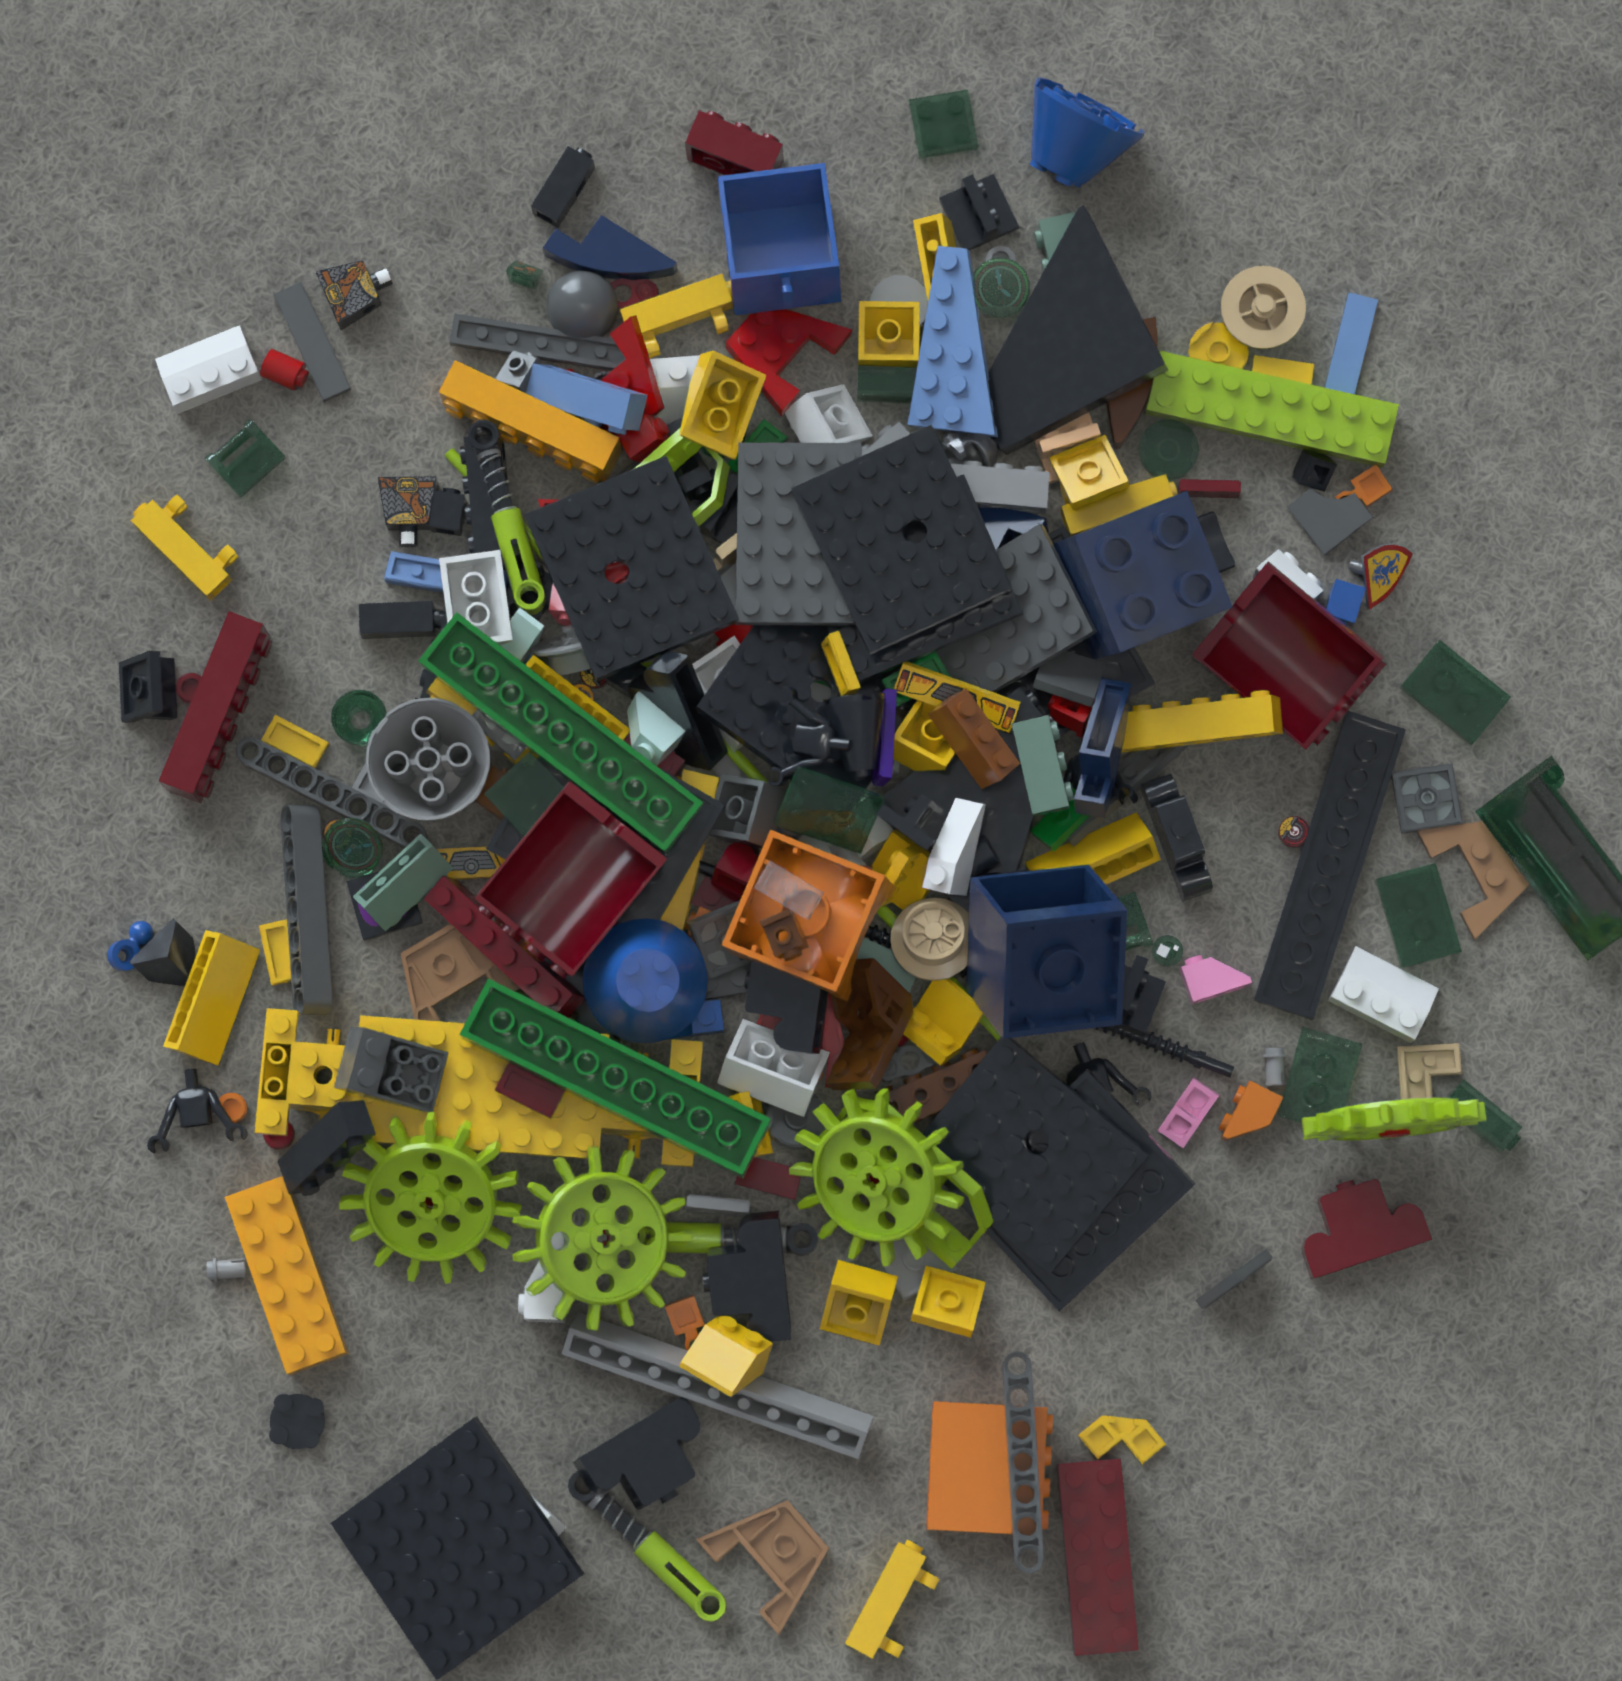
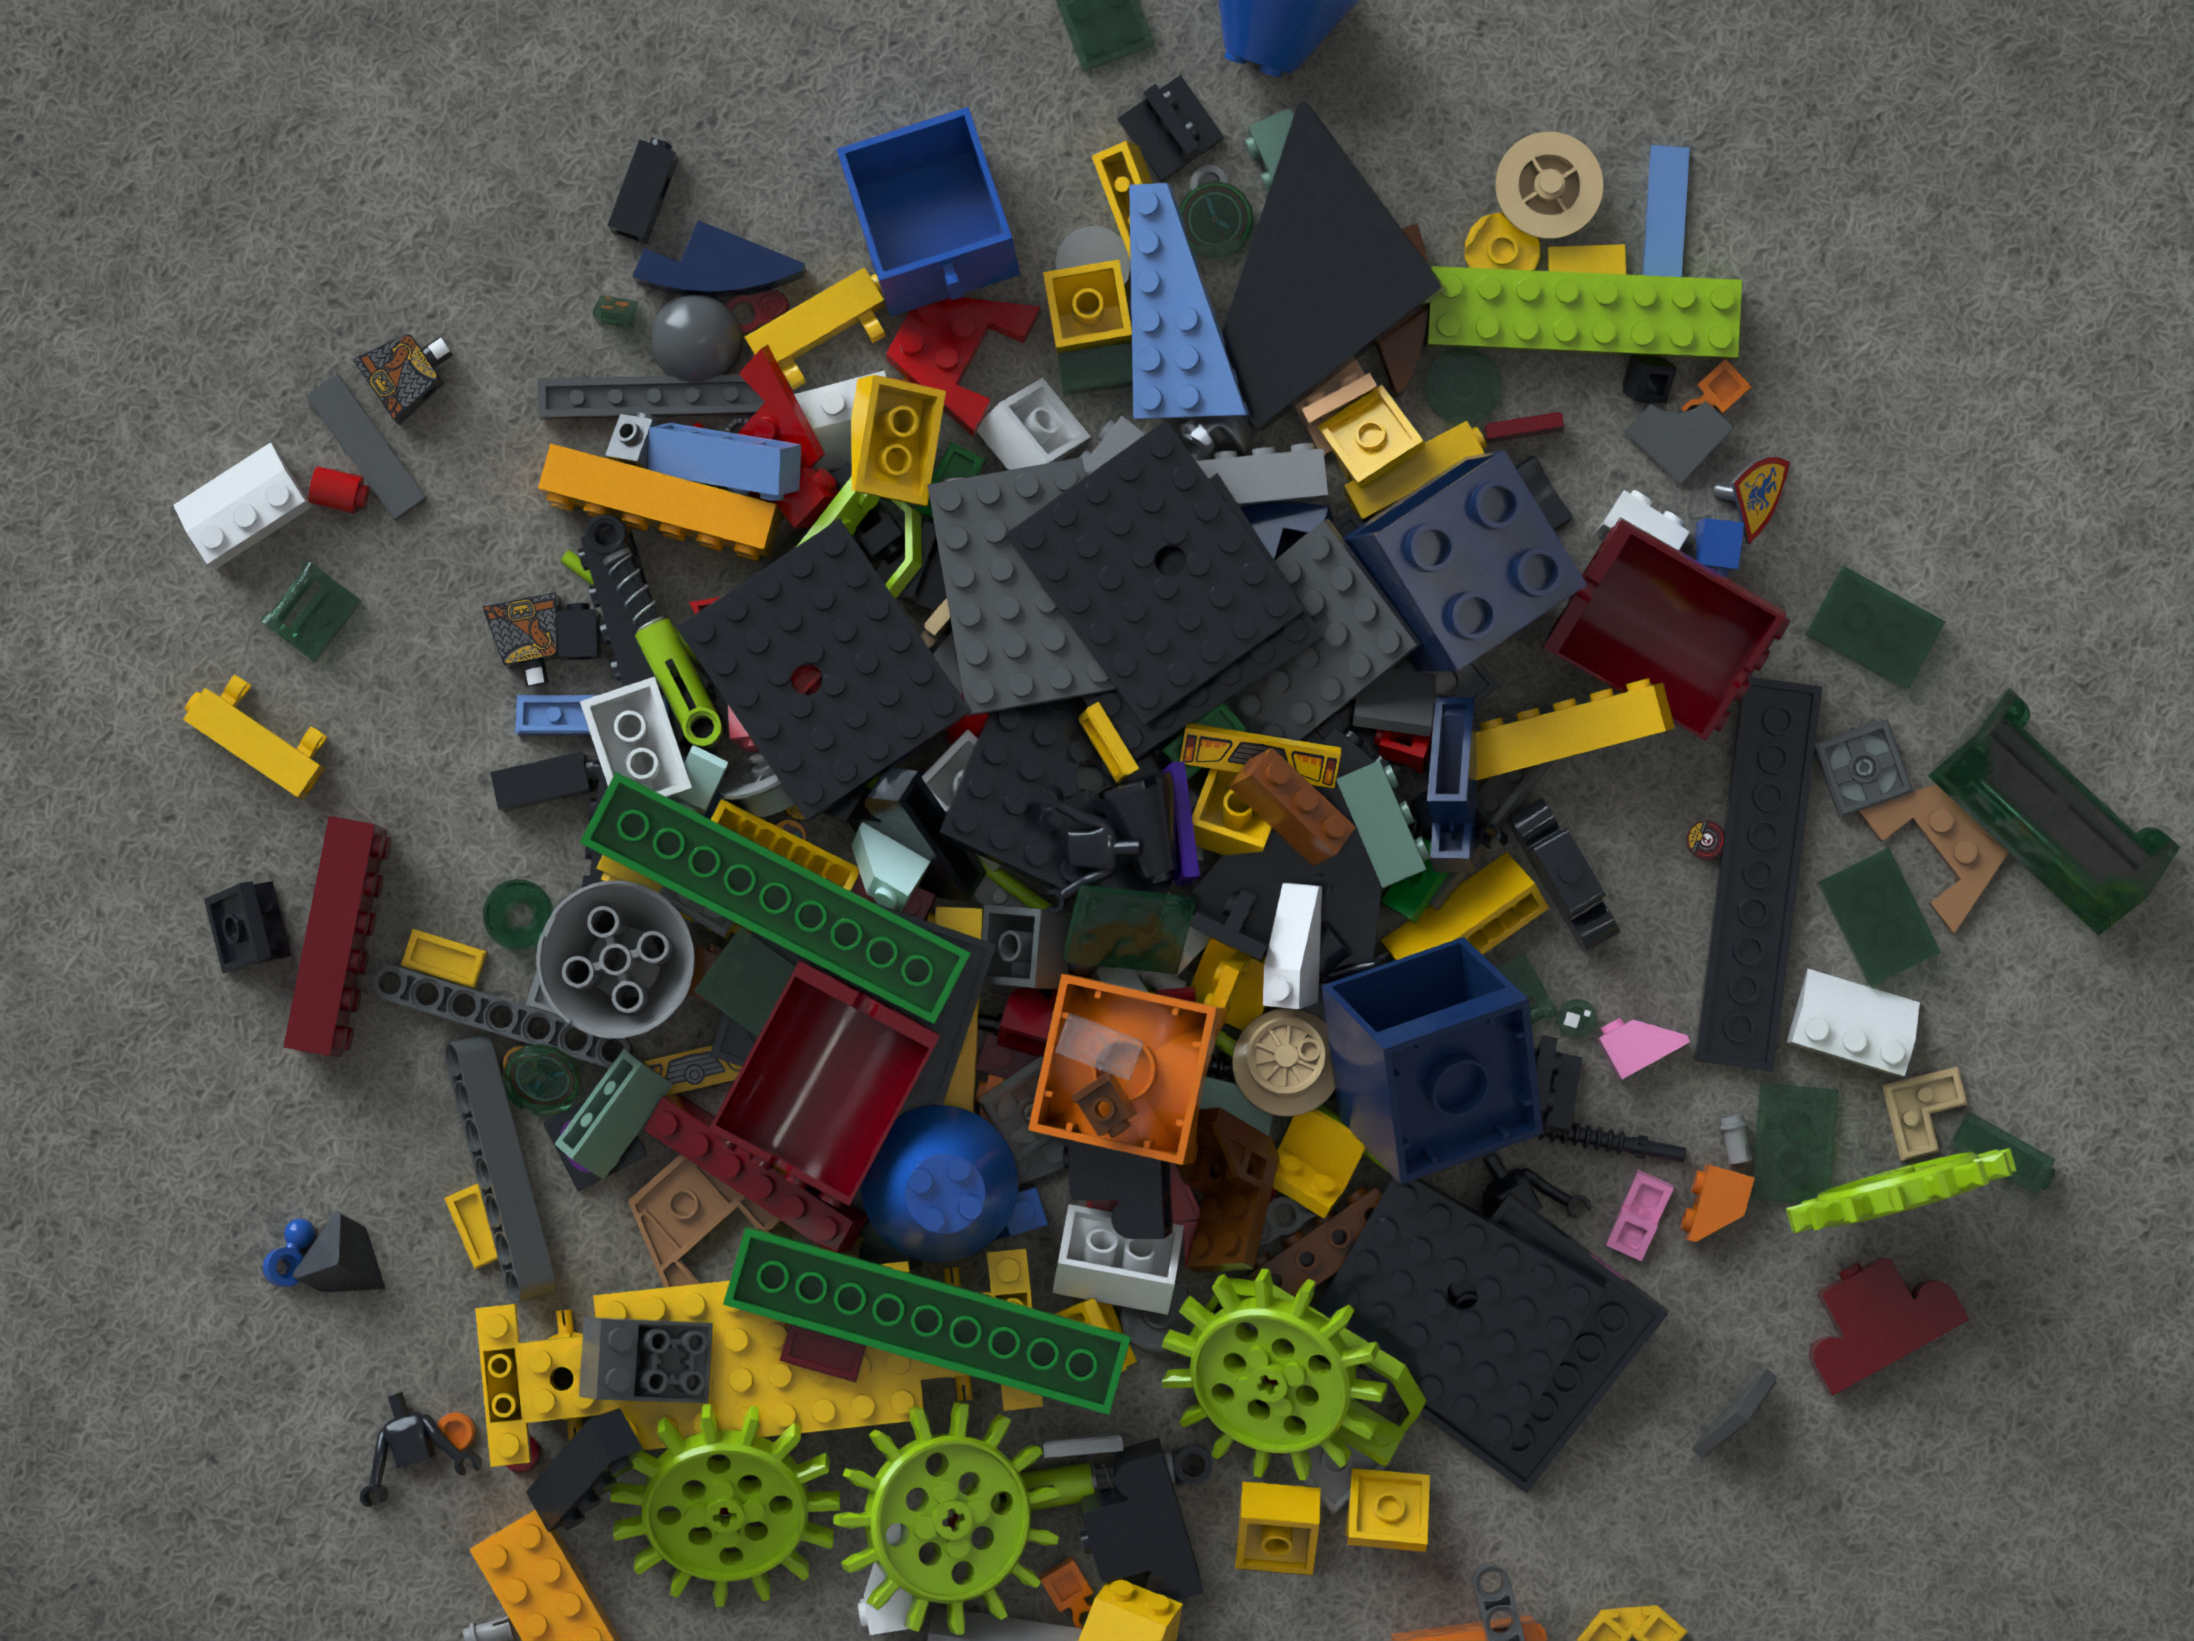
camera: 10 degrees left, 5 degrees up
(187, 686) = (296, 913): dark red tile -> none
(211, 997) = (403, 1300): yellow brick -> none
(731, 147) = (847, 104): dark red brick -> none
(770, 1178) = (1144, 1394): dark red tile -> none

